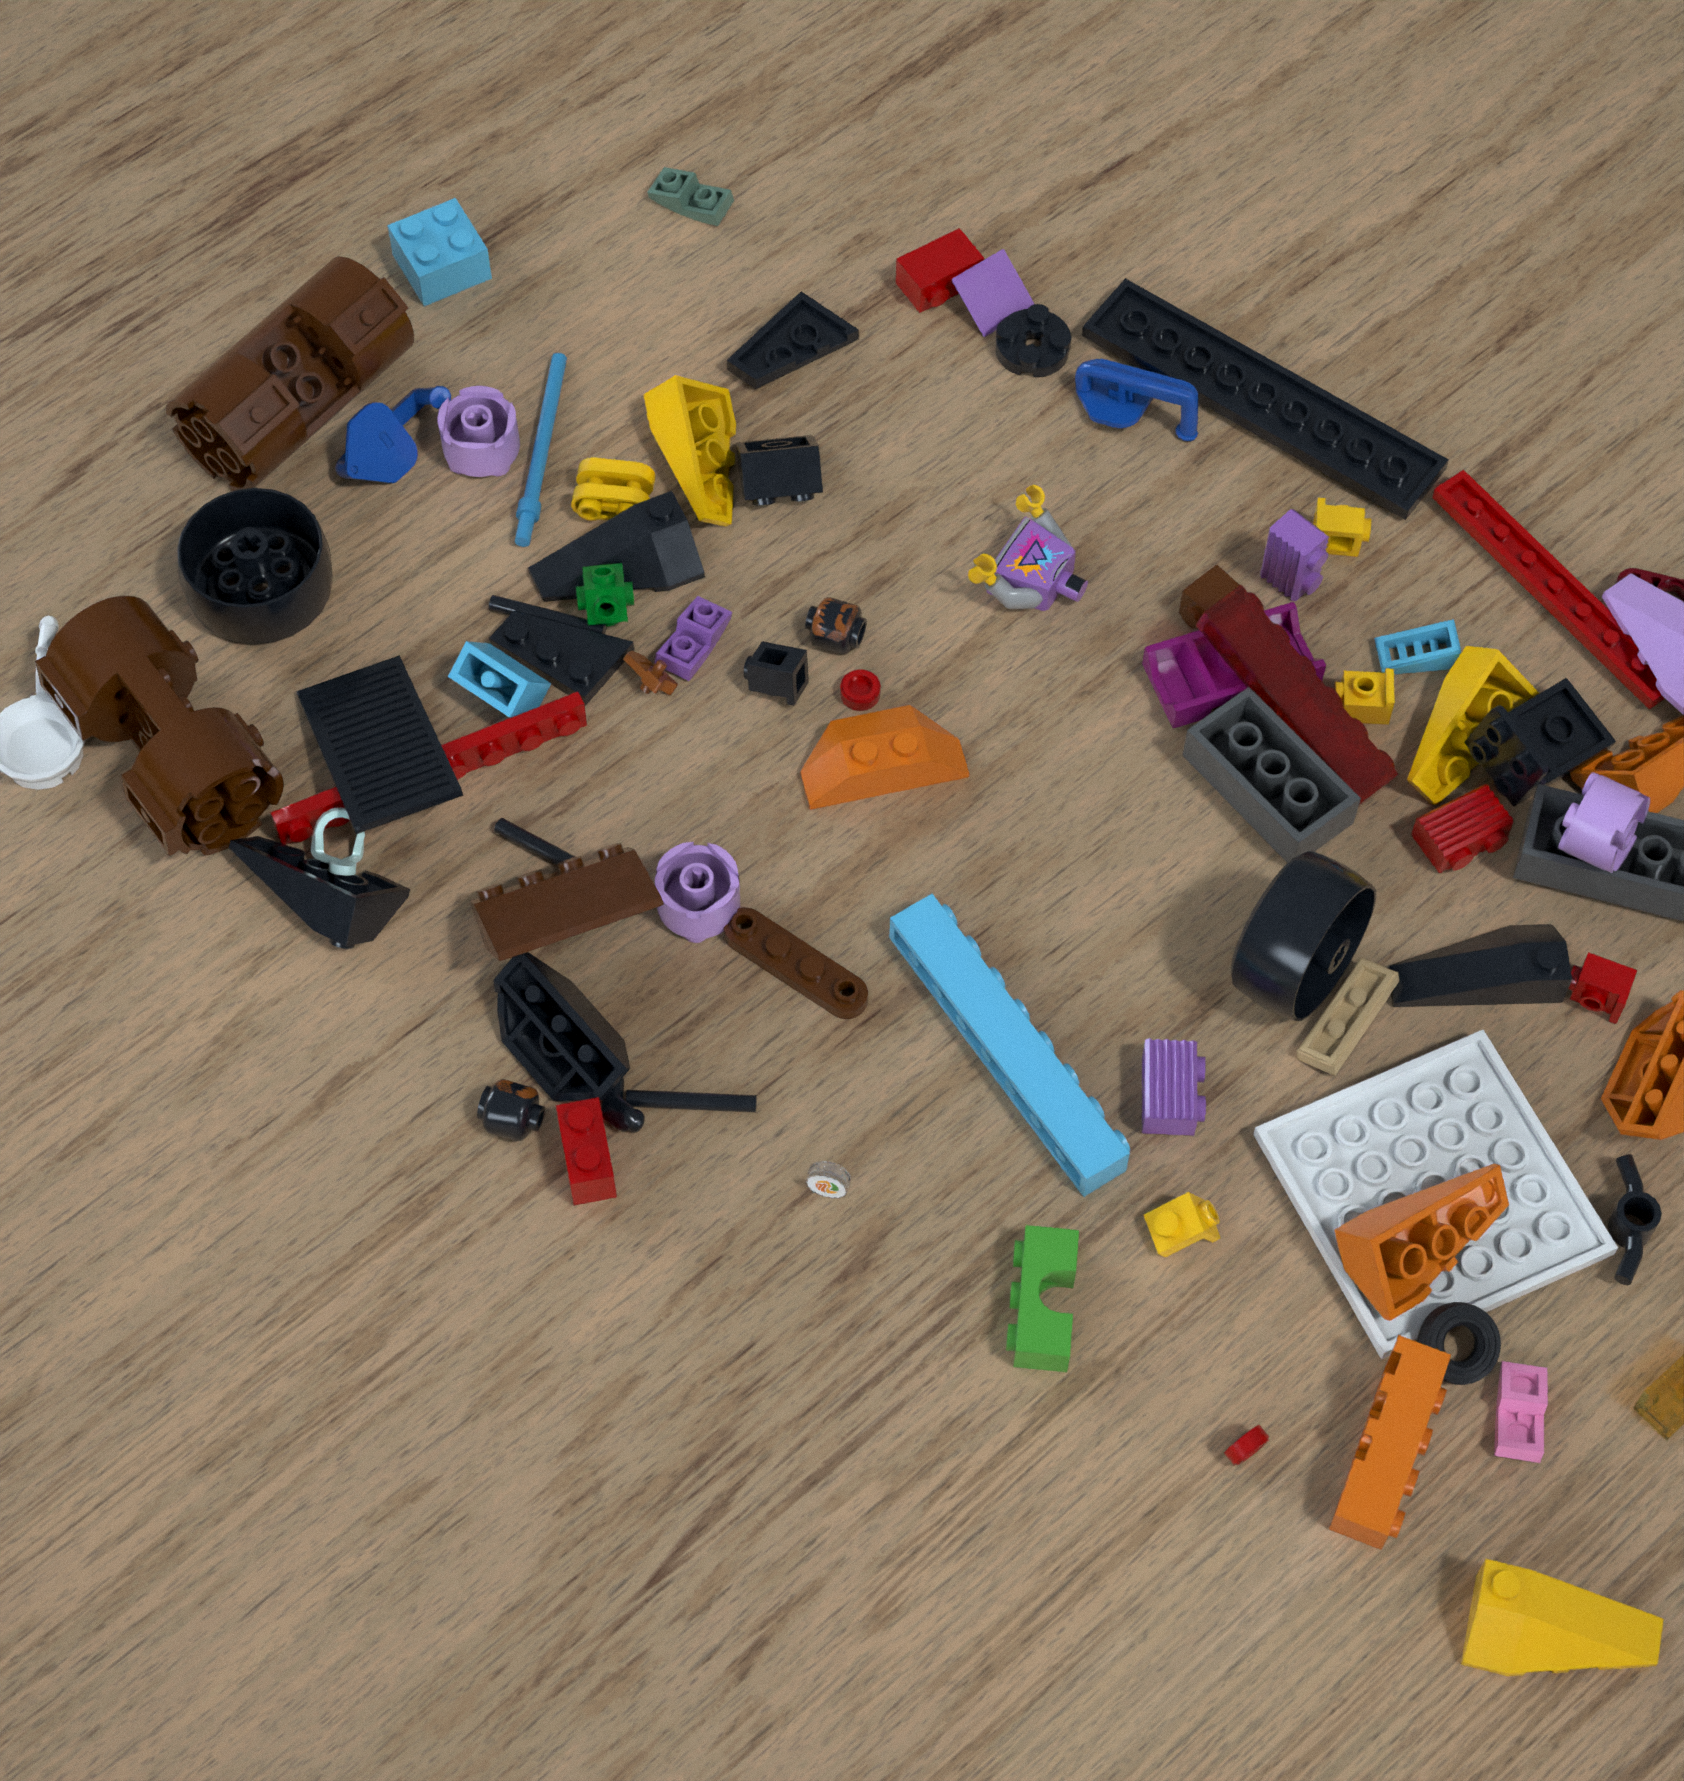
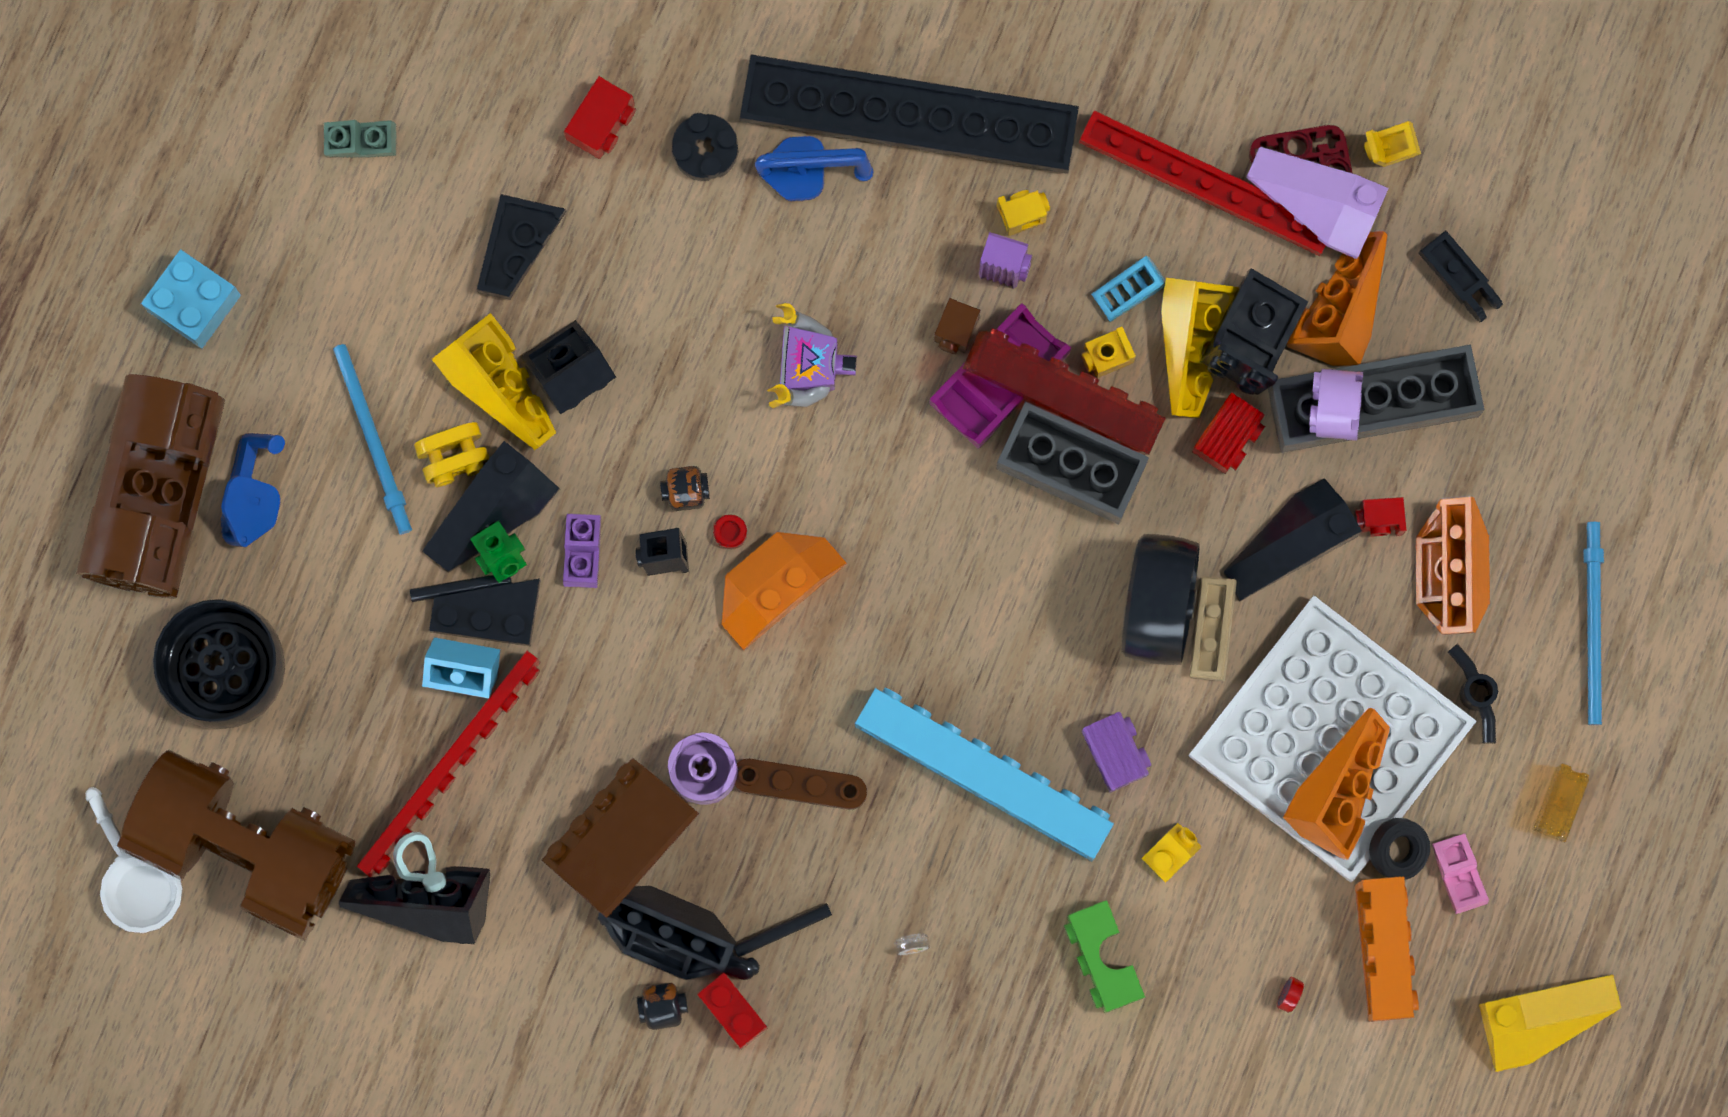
camera: 25 degrees left, 20 degrees up
(379, 744) = (401, 767): black window -> none
(479, 432) = (302, 453): lavender brick -> none
(531, 842) = (564, 784): black bar -> none
(651, 675) = (570, 600): dark orange piece -> none
(992, 291) = (652, 118): medium lavender sticker -> none

